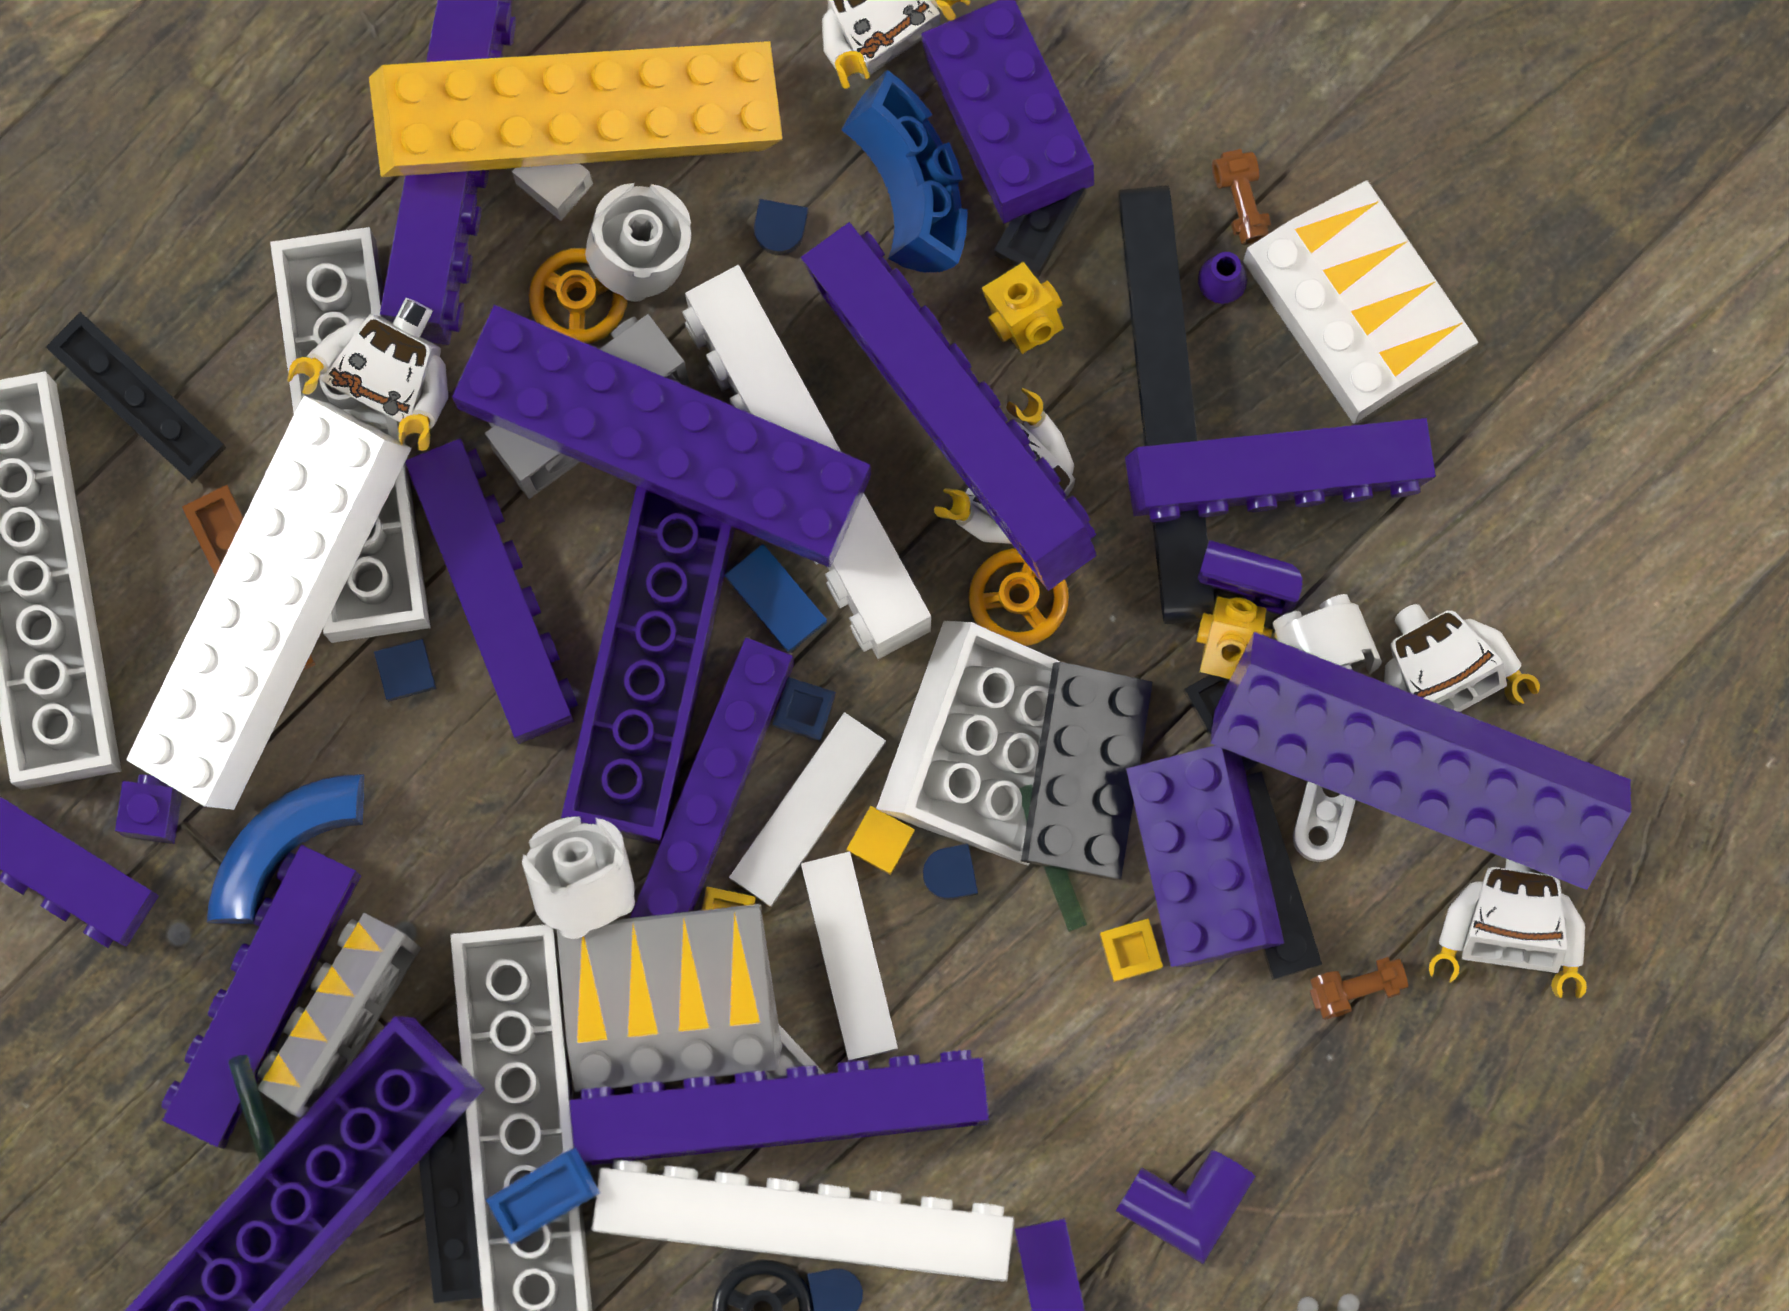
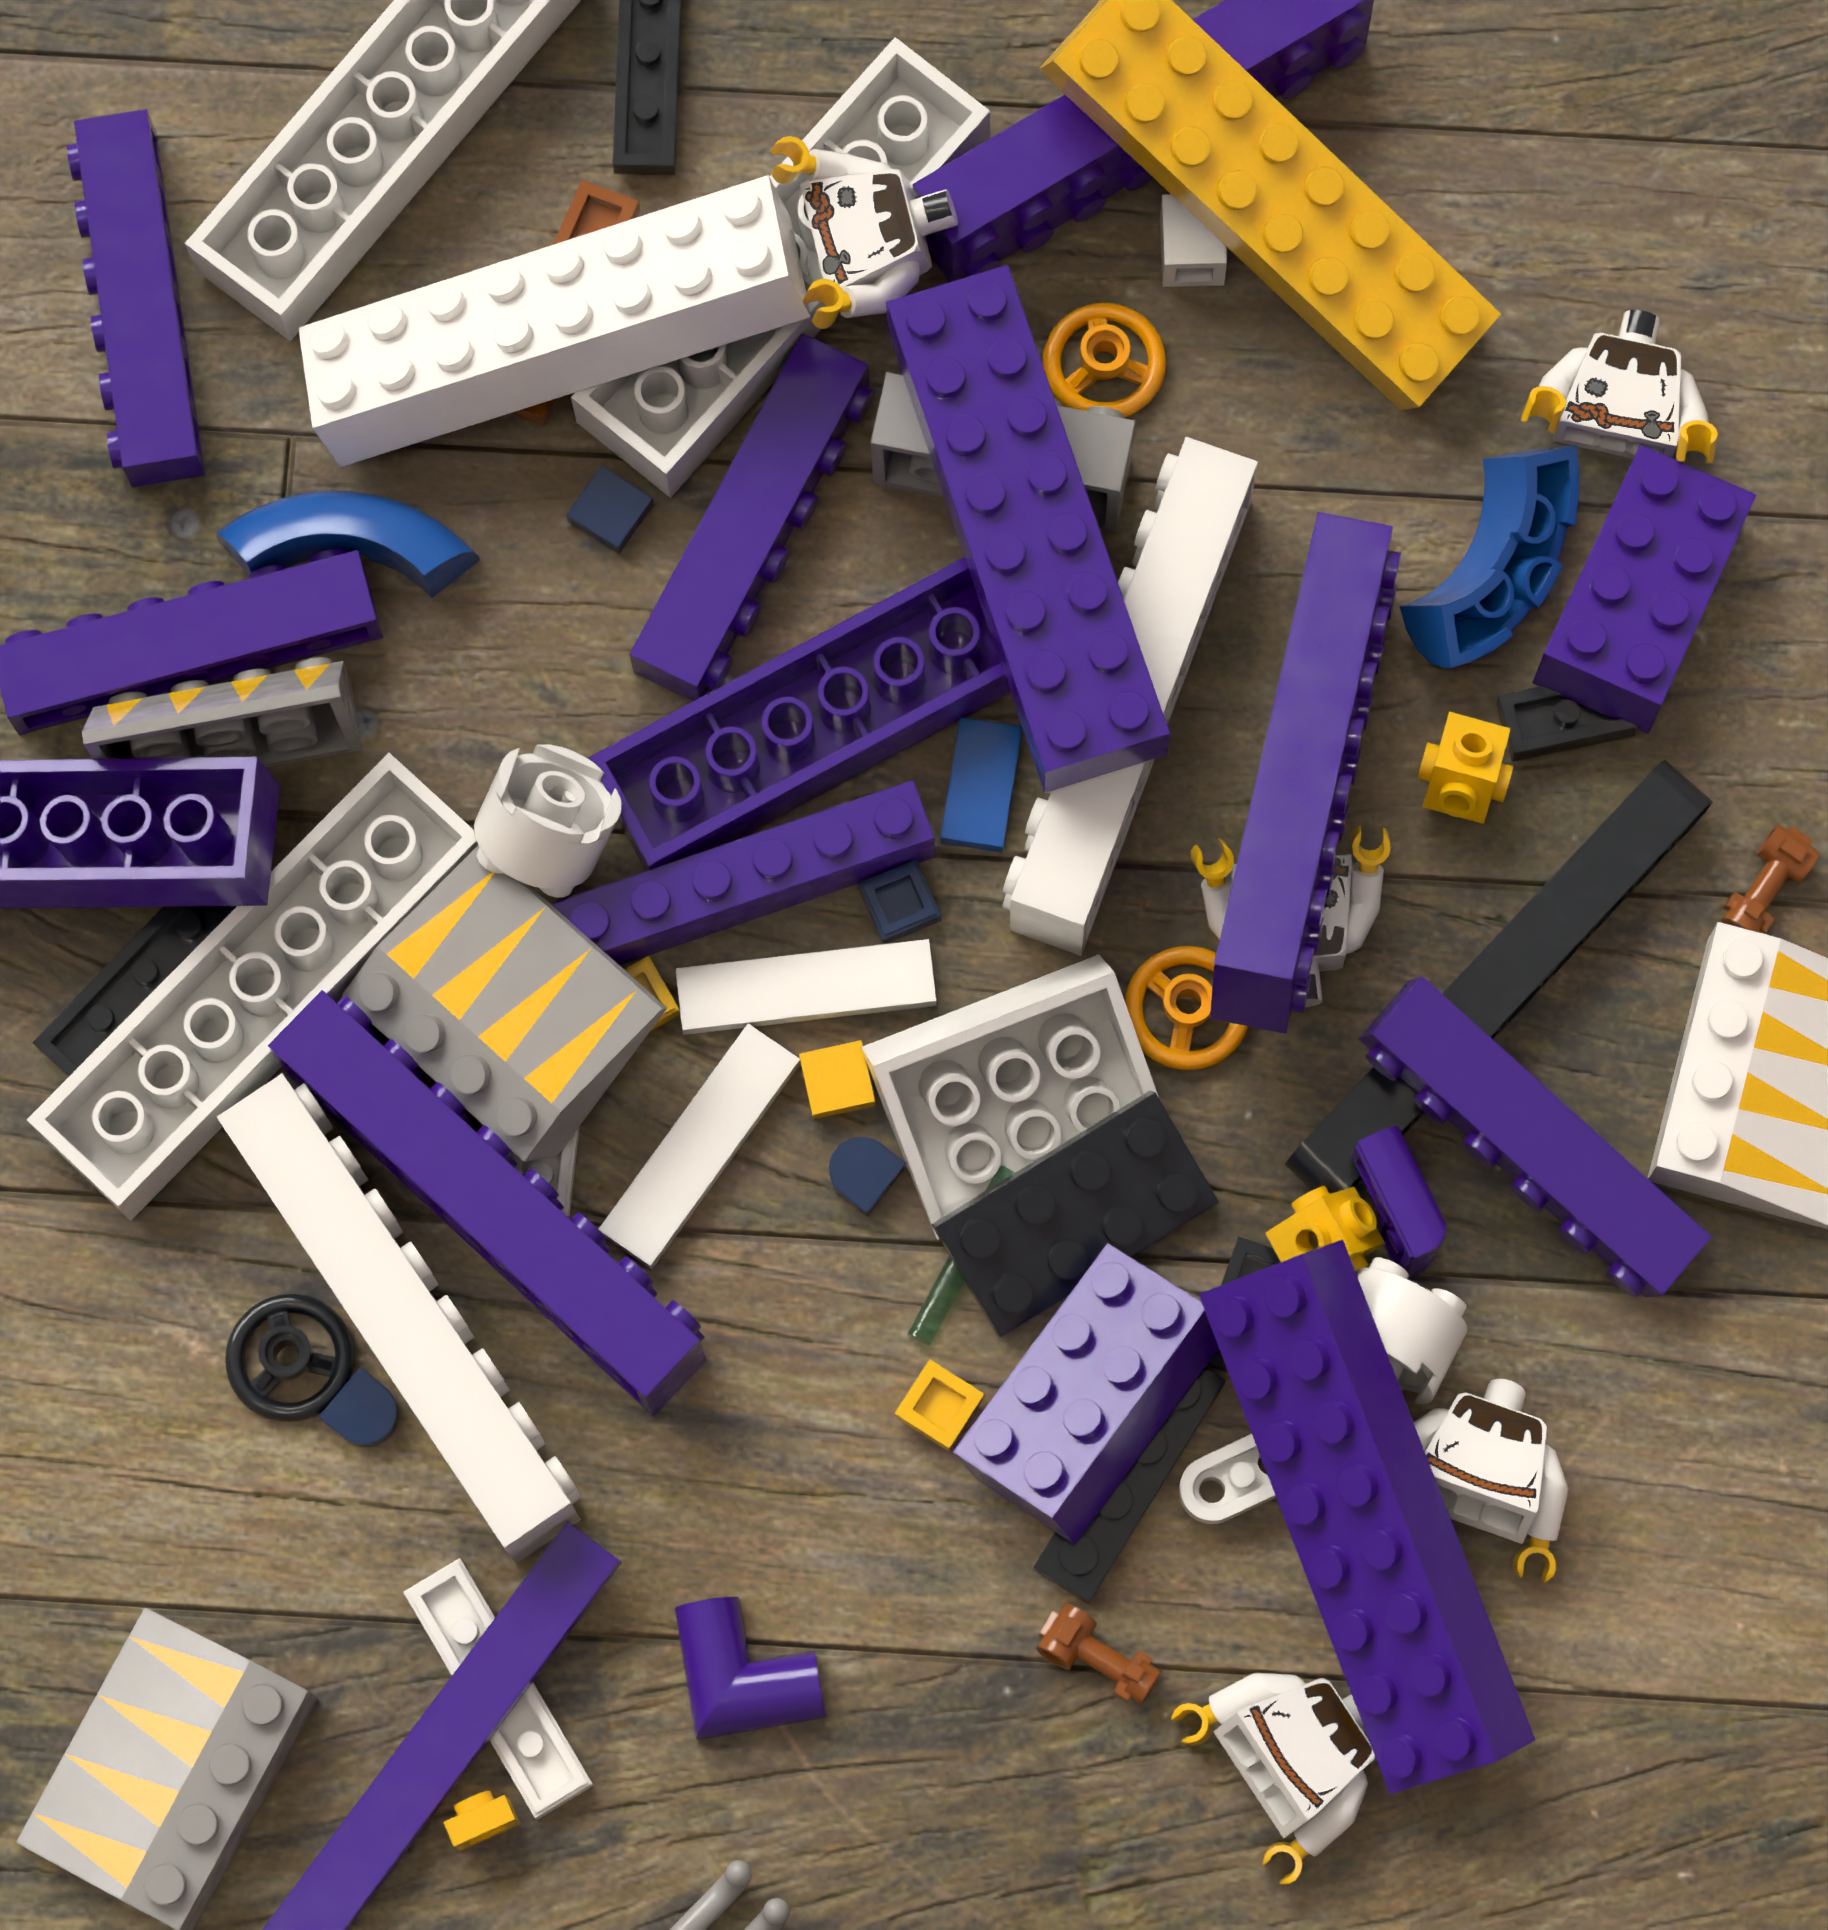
camera: 50 degrees right, 5 degrees down
(148, 810) = (270, 392): dark purple brick -> none
(252, 1105) = (76, 709): bar -> none
(543, 1196) = (210, 1044): blue tile -> none
(638, 240) = (1203, 363): white brick -> none
(779, 226) = (1340, 483): dark blue tile -> none
(1222, 288) = (1667, 942): dark purple cone -> none

